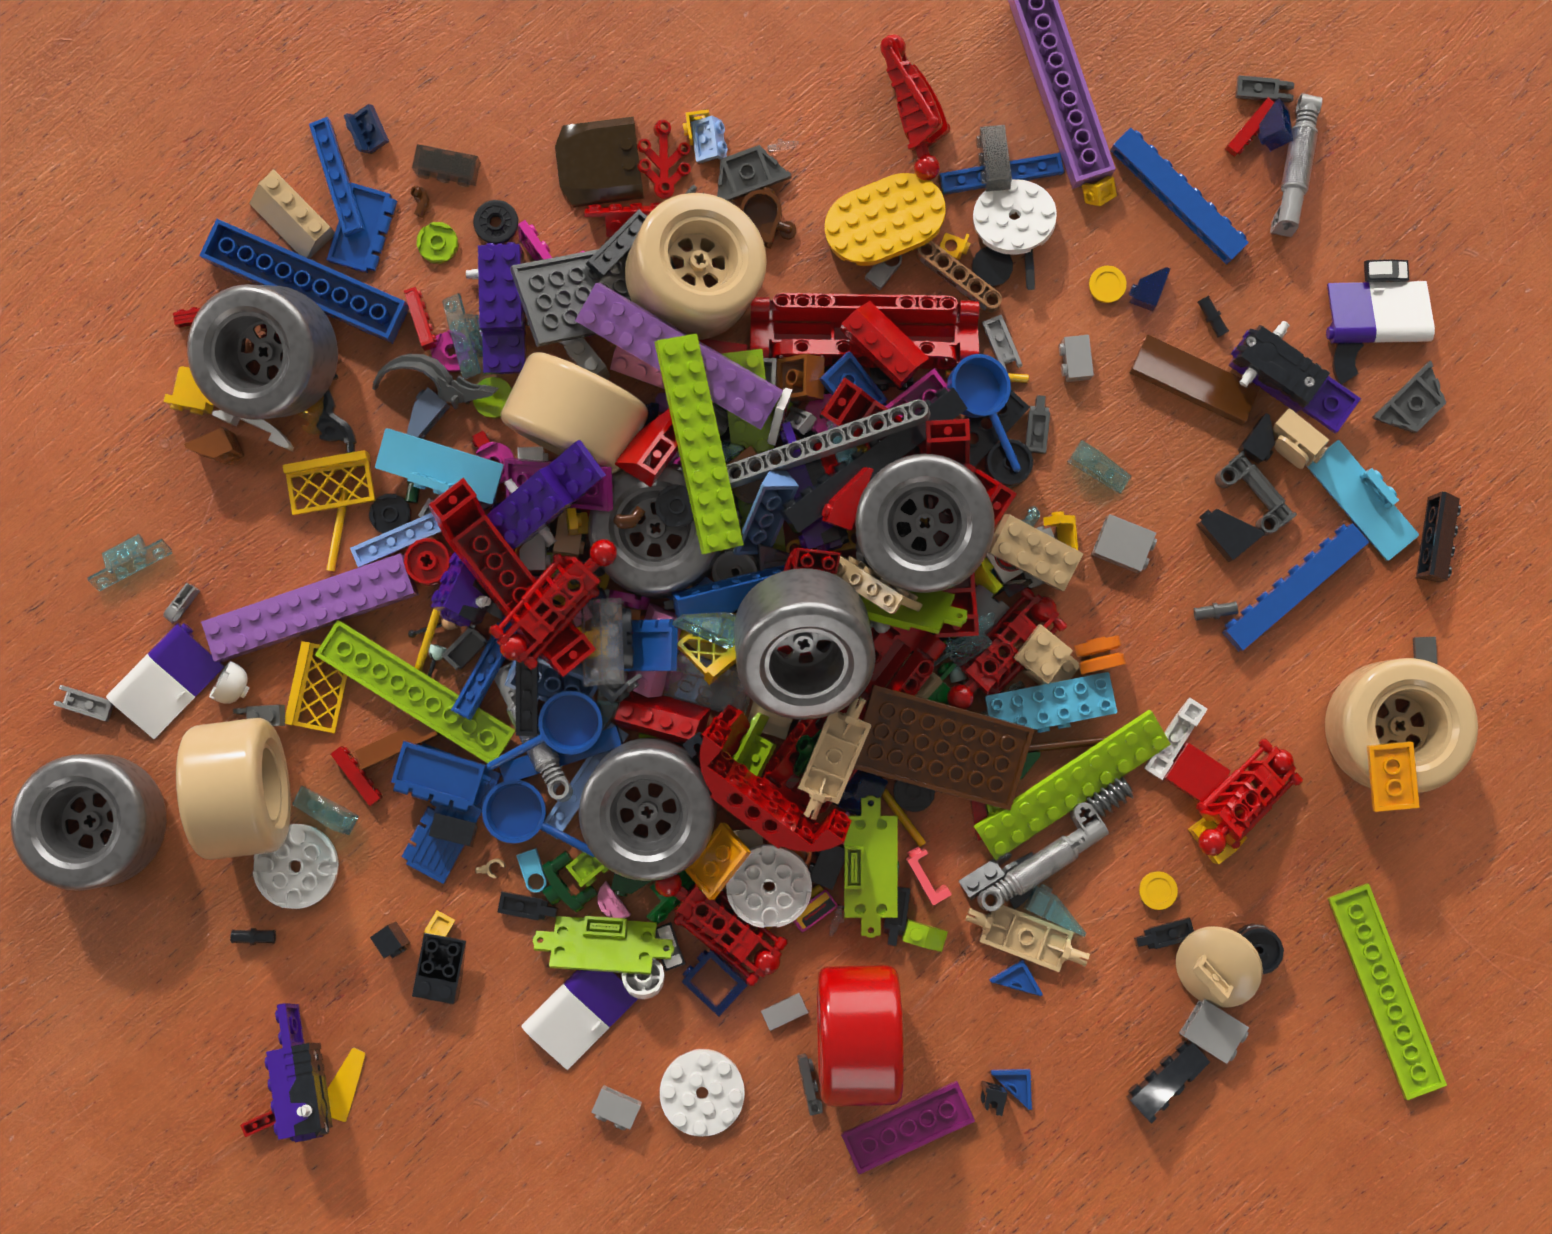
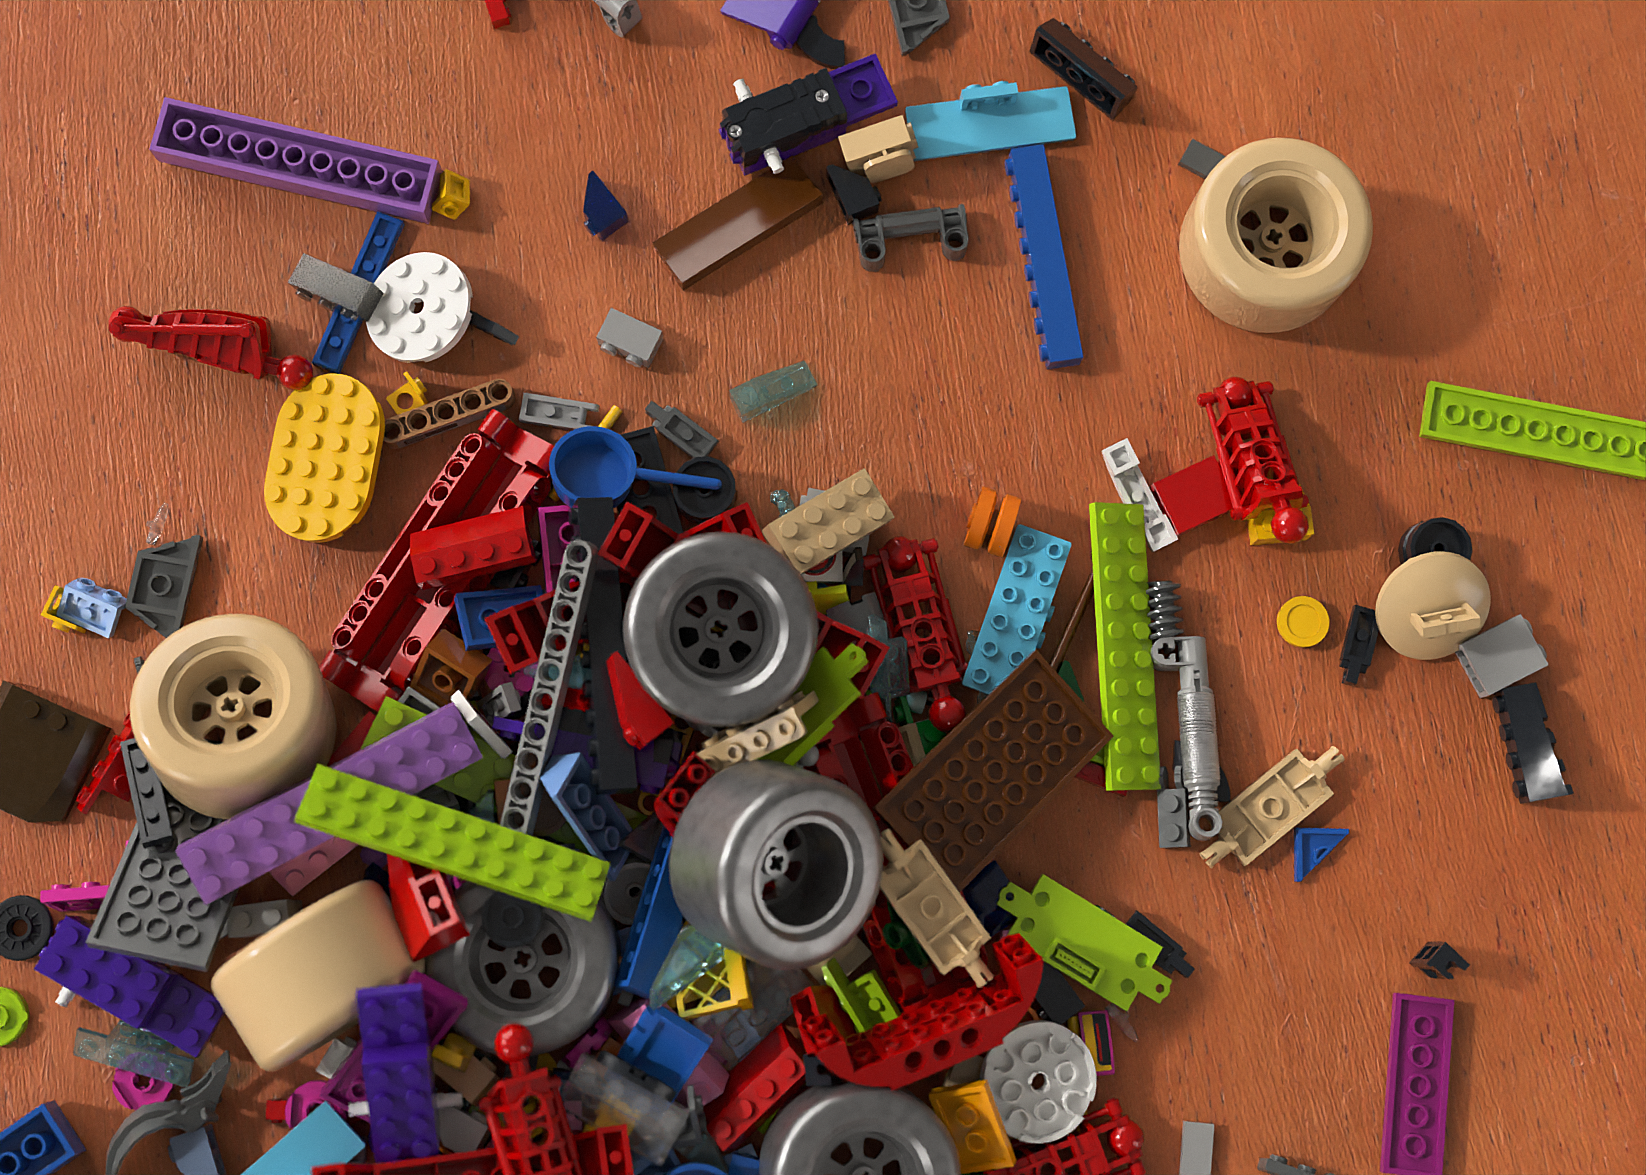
camera: 70 degrees left, 5 degrees down
(420, 318) = (78, 1095): red piece -> none
(493, 405) = (243, 1071): lime tile -> none
(629, 521) = (494, 987): reddish brown arm -> none
(662, 161) = (81, 679): red plant -> none
(766, 214) = (225, 592): reddish brown piece -> none
(860, 1035) = (1284, 1080): red wheel -> none
(881, 273) = (386, 502): light grey piece -> none
(903, 818) = (1048, 868): yellow bar -> none
(912, 797) = (1029, 843): black tile -> none
(924, 935) = (1201, 928): lime slope -> none
(933, 896) = (1162, 885): coral panel -> none
(992, 266) = (460, 368): black tile -> none
(1016, 1082) = (1435, 922): blue tile -> none
(1046, 658) = (959, 585): tan bracket -> none
(1051, 908) = (1251, 759): clear light blue slope -> none
(1065, 527) = (820, 472): yellow bracket -> none
(1107, 284) = (565, 252): yellow piece -> none
(1124, 544) = (879, 416): light grey brick -> none
(1179, 195) = (514, 110): blue brick -> none
(1213, 316) = (678, 157): black pin -> none
(1215, 611) = (1018, 360): dark grey pin -> none
(1228, 533) = (938, 292): black slope -> none
(1393, 776) = (1333, 276): light orange plate -> none

